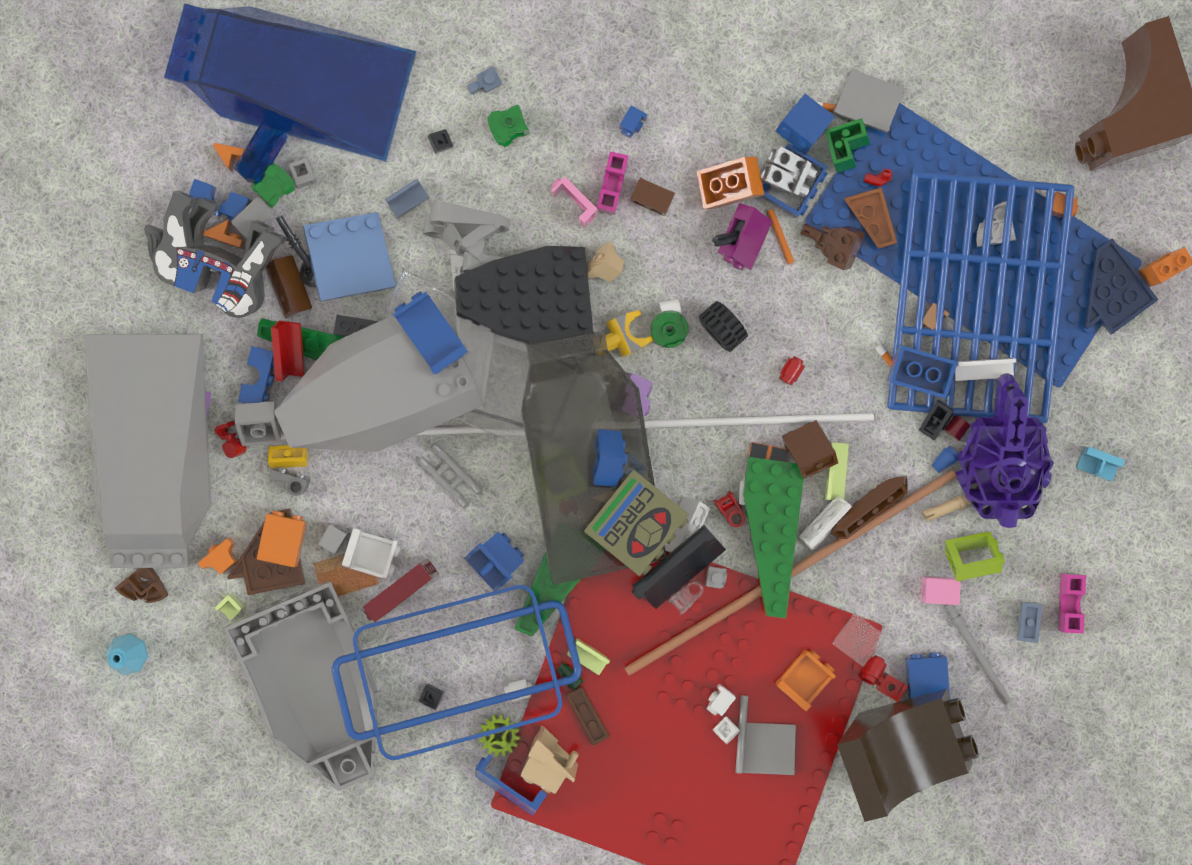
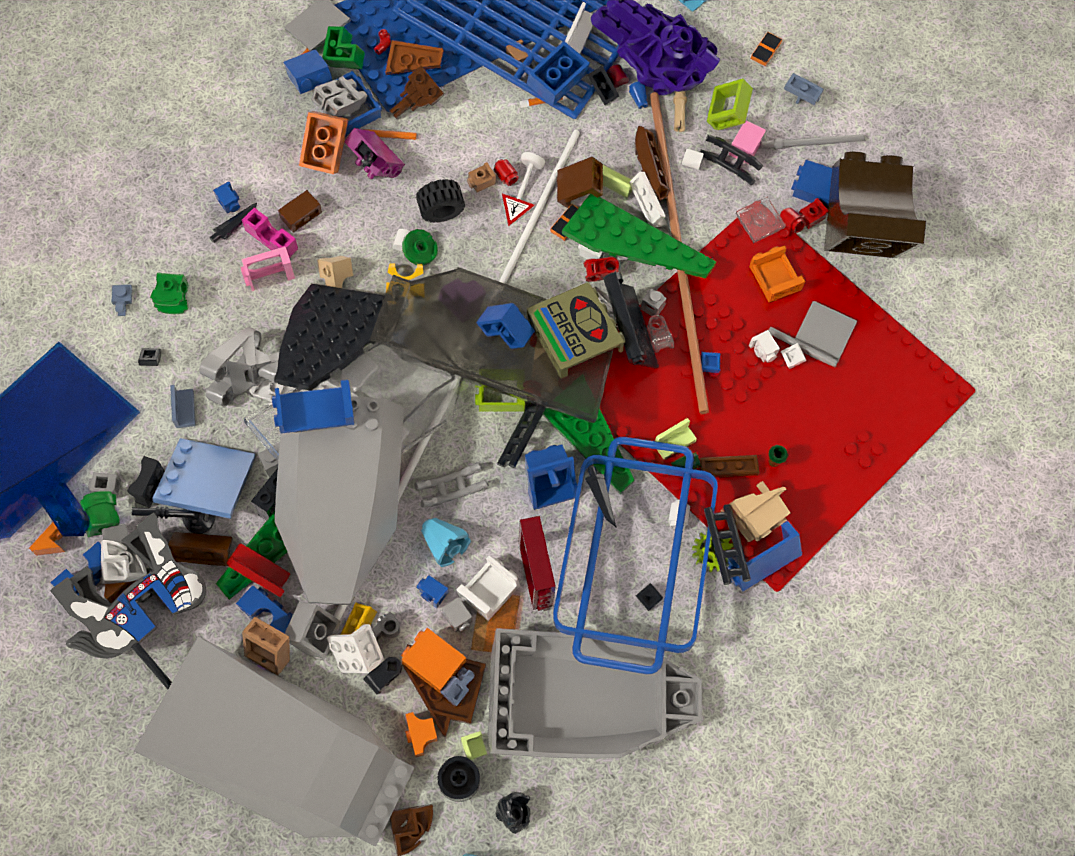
camera: 70 degrees left, 20 degrees down
(163, 308) = (145, 657): none -> black bar
(188, 601) = (450, 770): none -> black brick
(198, 668) = (514, 806): none -> black hair
(225, 393) = (266, 643): none -> medium nougat window
(233, 446) = (321, 669): red leg -> none
(234, 229) = (119, 564): none -> white brick
(251, 500) = (381, 677): none -> black piece
(258, 475) = (356, 651): none -> white bracket
(269, 571) = (456, 687): none -> sand blue plate
(313, 212) = (147, 482): none -> black brick
(345, 506) = (432, 590): none -> blue brick
(393, 494) = (444, 539): none -> medium azure cone
(496, 762) = (722, 554): none -> black bar
(498, 613) = (598, 487): none -> black bar
(518, 520) = (521, 442): none -> black bar
(607, 138) = (230, 225): none -> black bar
(613, 762) = (777, 455): none -> dark green cone
(682, 655) = (710, 362): none -> blue tile
(760, 398) = (516, 207): none -> white piece
(777, 356) = (480, 183): none -> medium nougat brick
(895, 544) = (692, 159): none -> white brick
(907, 590) = (720, 159): none -> black piece
(1066, 562) = (766, 48): none -> black tile
(1070, 615) = (812, 62): dark pink arch -> none

